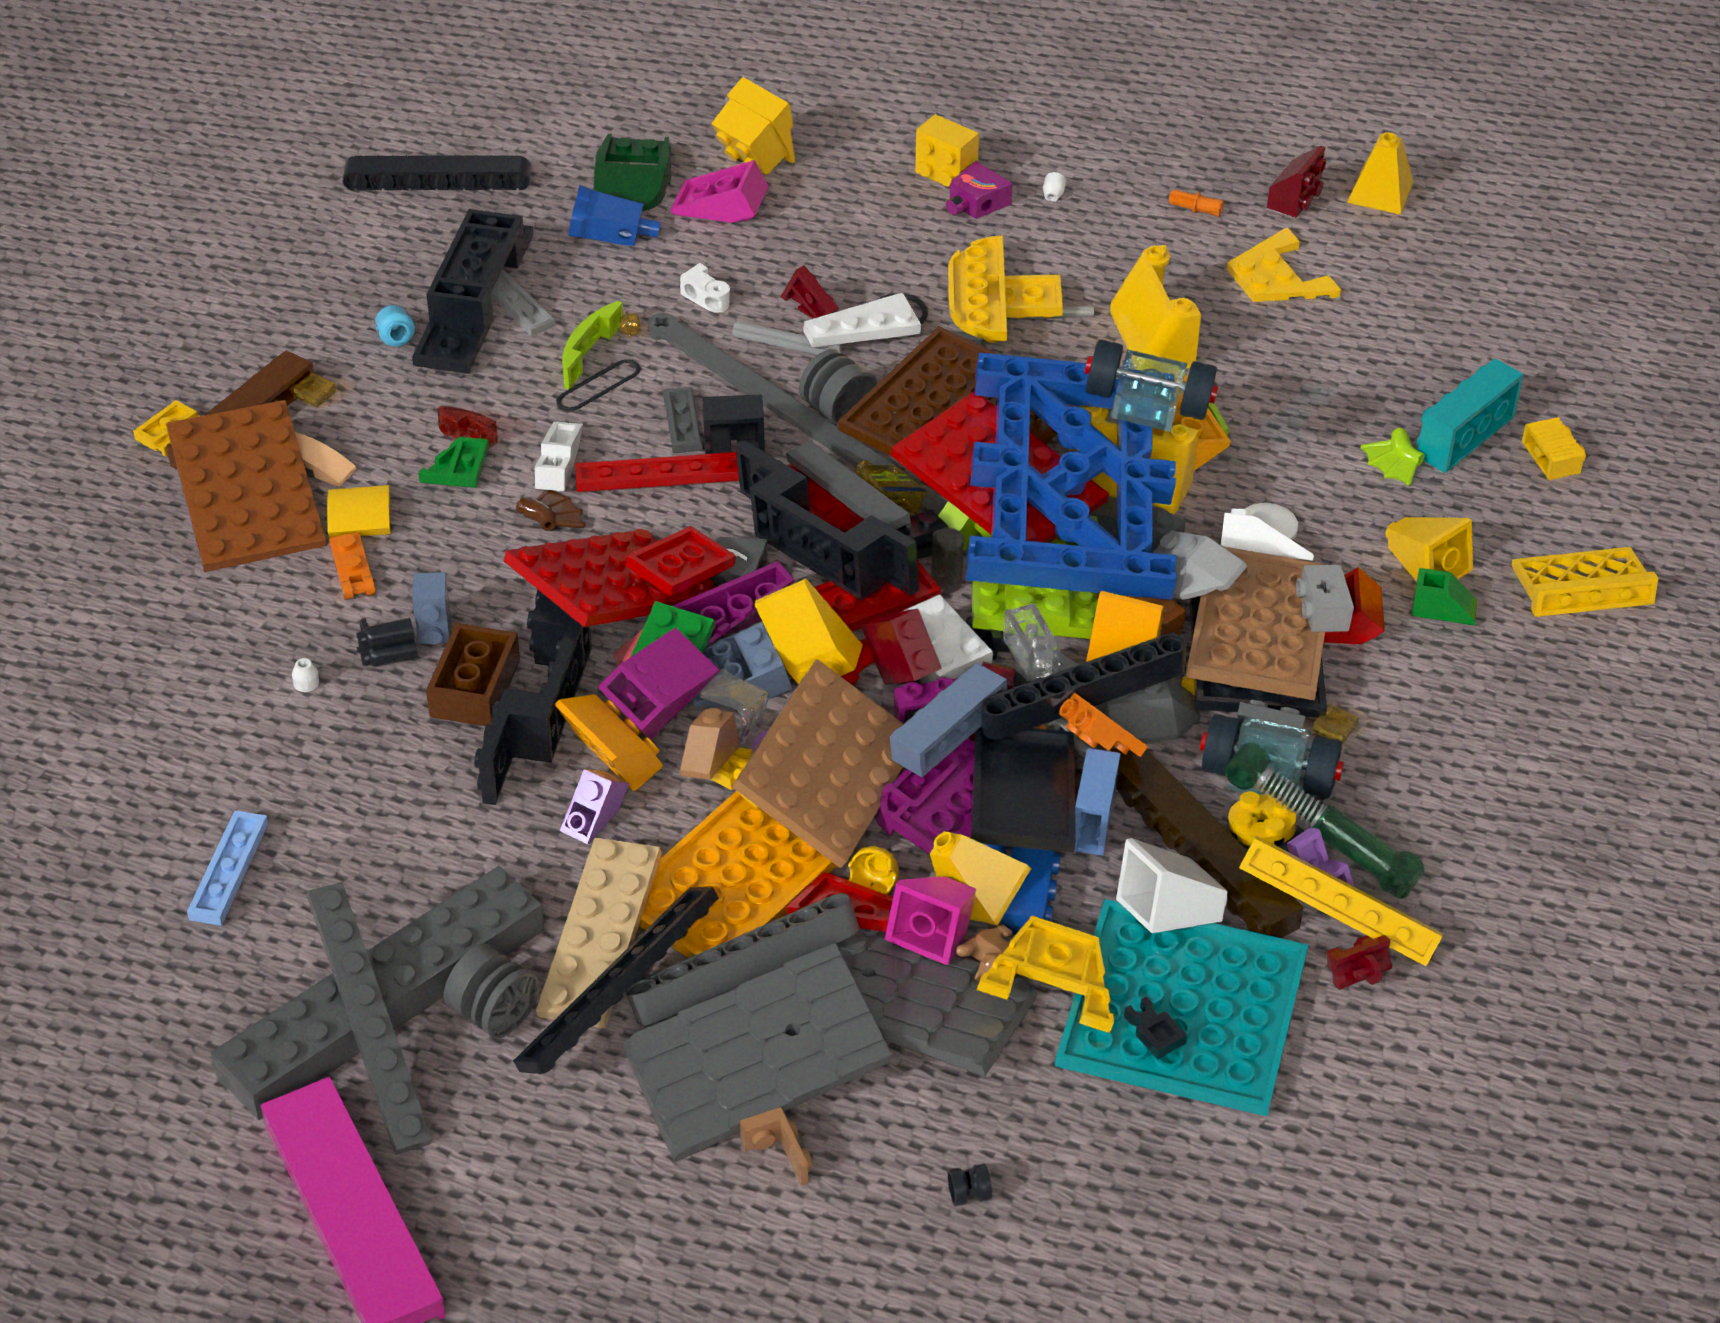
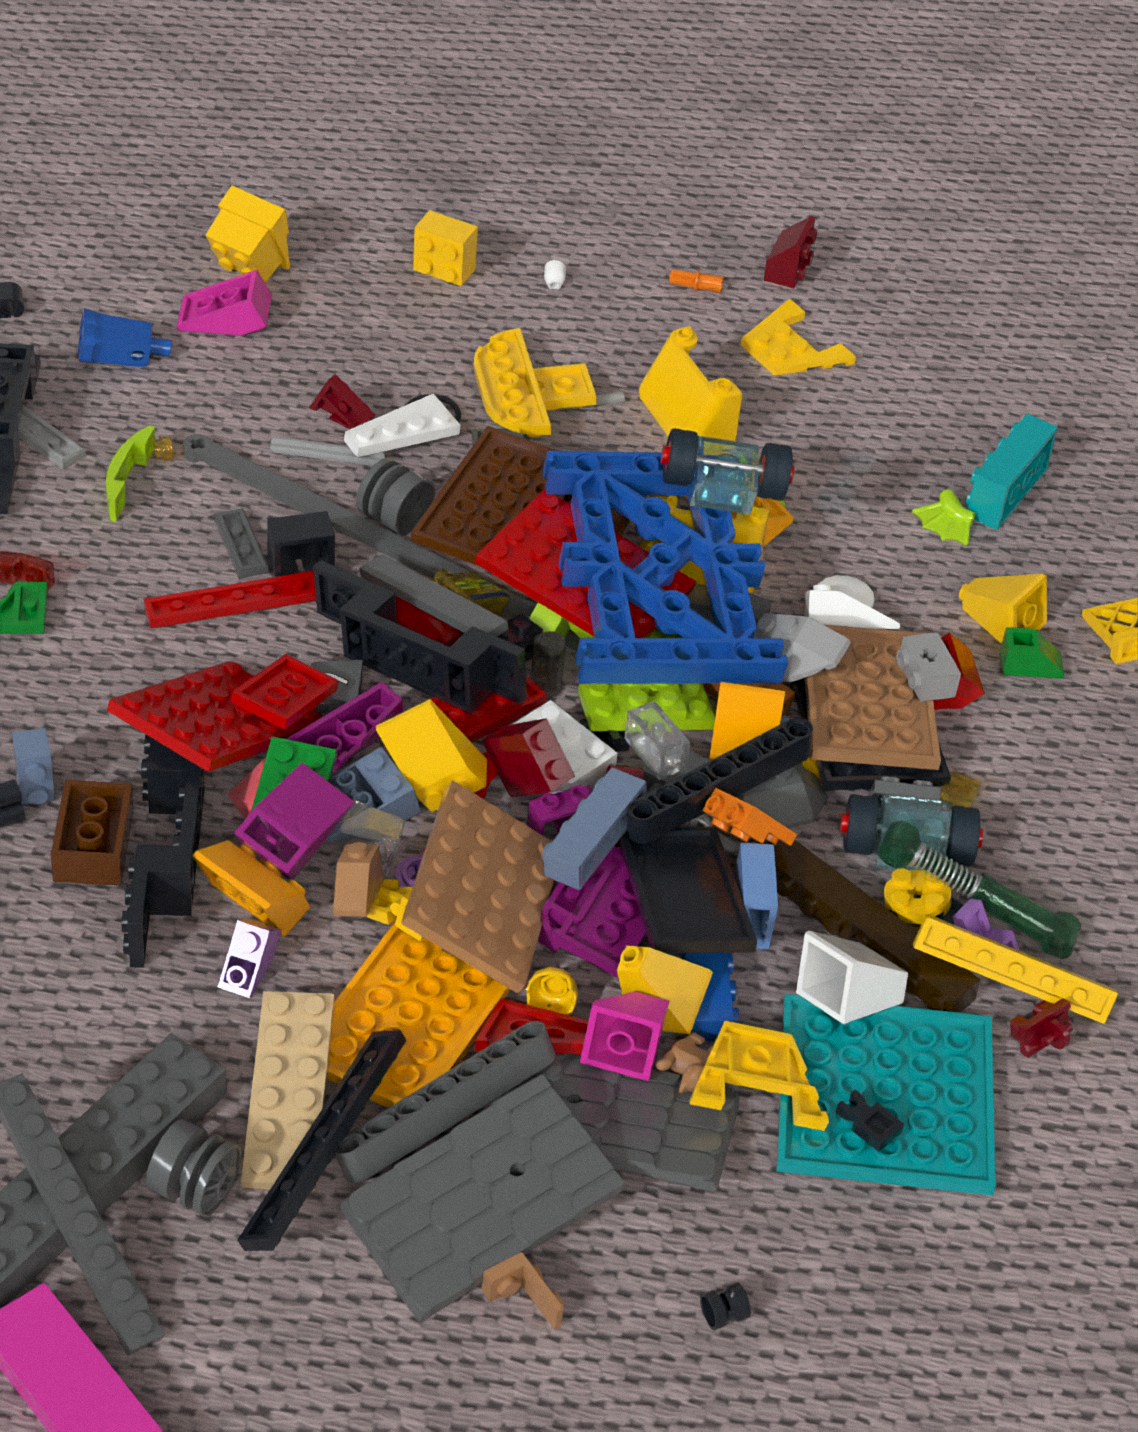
camera: 15 degrees left, 0 degrees up
(551, 510) = (129, 650): reddish brown arm -> none
(557, 456) = (123, 593): white slope -> none
(558, 400) = (107, 533): black piece -> none
(633, 181) = (129, 299): dark green slope -> none
(705, 289) = (233, 406): white leg -> none
(978, 192) = (483, 285): magenta torso -> none
(1384, 176) = (870, 241): yellow slope -> none
(1553, 448) = (1093, 496): yellow brick -> none

